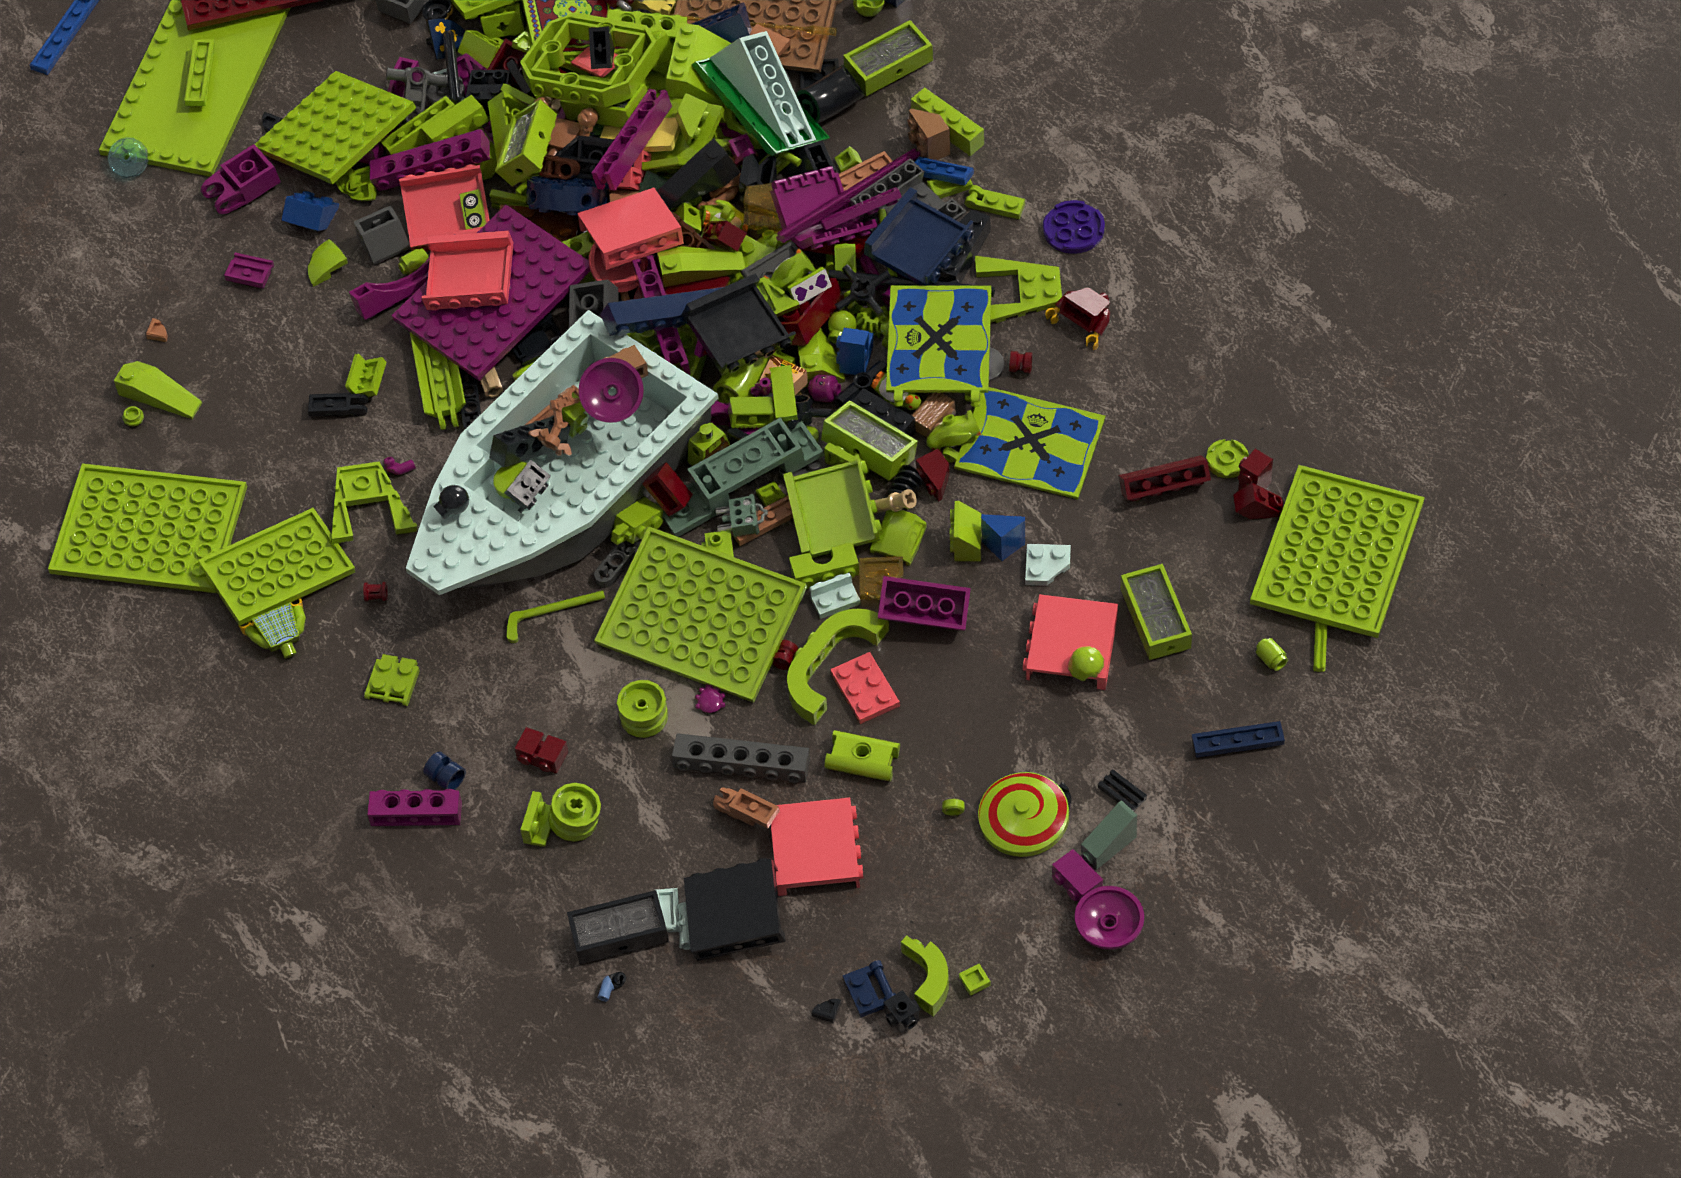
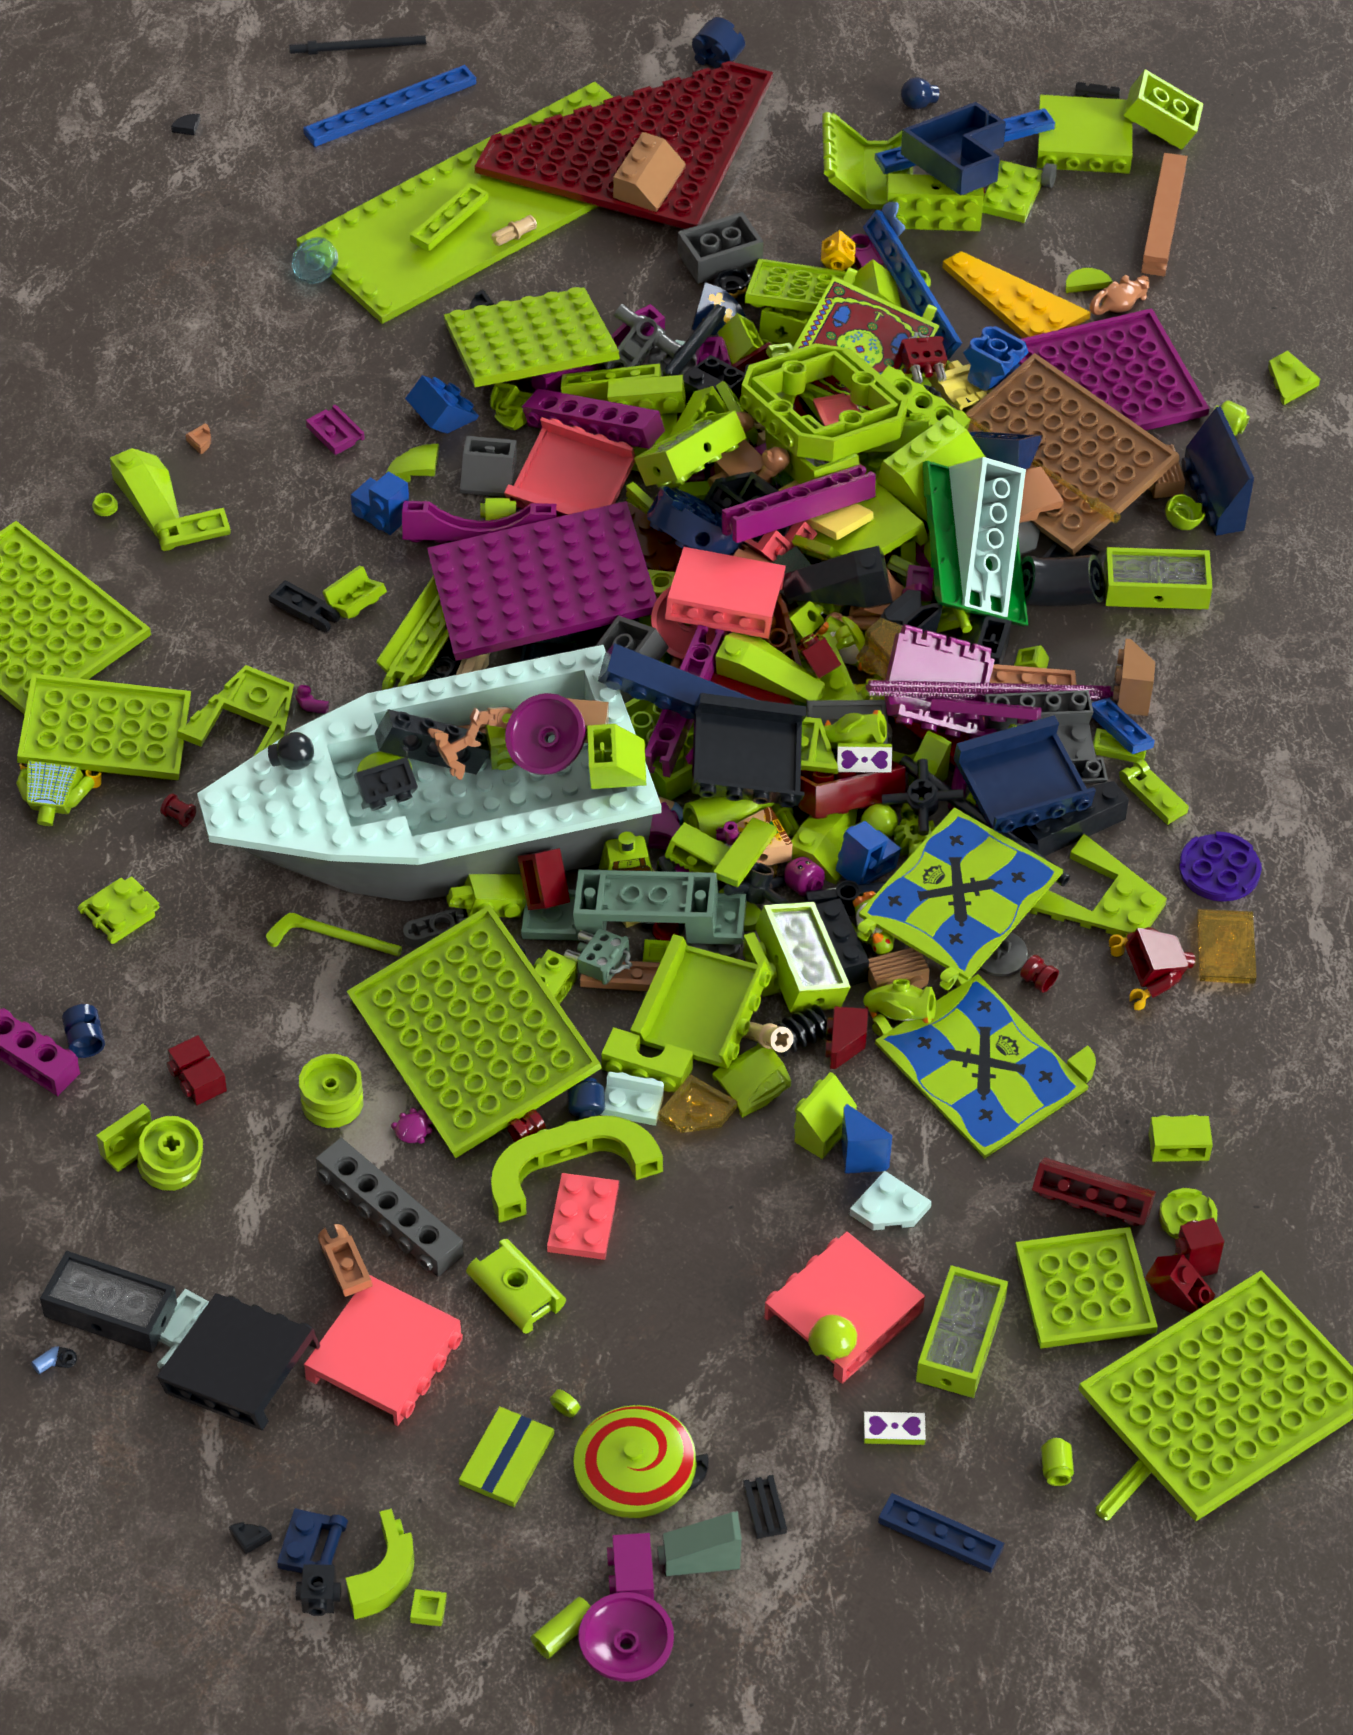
camera: 30 degrees right, 5 degrees down
(212, 396) = (192, 528): none -> lime plate
(241, 180) = (400, 339): magenta brick -> none
(253, 56) = (514, 230): none -> tan axle
(330, 303) = (381, 502): none -> blue brick
(469, 270) = (532, 544): coral panel -> none
(473, 209) = (597, 489): tile -> none
(555, 167) = (709, 493): copper piece -> none
(601, 47) = (835, 391): black slope -> none
(667, 379) = (615, 757): none -> lime slope
(689, 116) = (880, 512): lime slope -> none
(765, 479) = (665, 931): none -> dark red plate
(808, 614) = (586, 1099): none -> dark blue head
(924, 603) = (712, 1164): magenta slope -> none
(943, 861) = (506, 1456): none -> lime tile
(962, 130) = (1170, 680): lime brick -> none
(1064, 938) = (560, 1628): none -> lime piece
(1091, 403) = (1083, 1063): none -> lime tile
(1118, 276) = (1226, 946): none -> clear yellow tile
(1159, 696) = (894, 1428): none -> tile
(1187, 413) = (1180, 1138): none -> lime brick
(1203, 540) = (1085, 1287): none -> lime plate

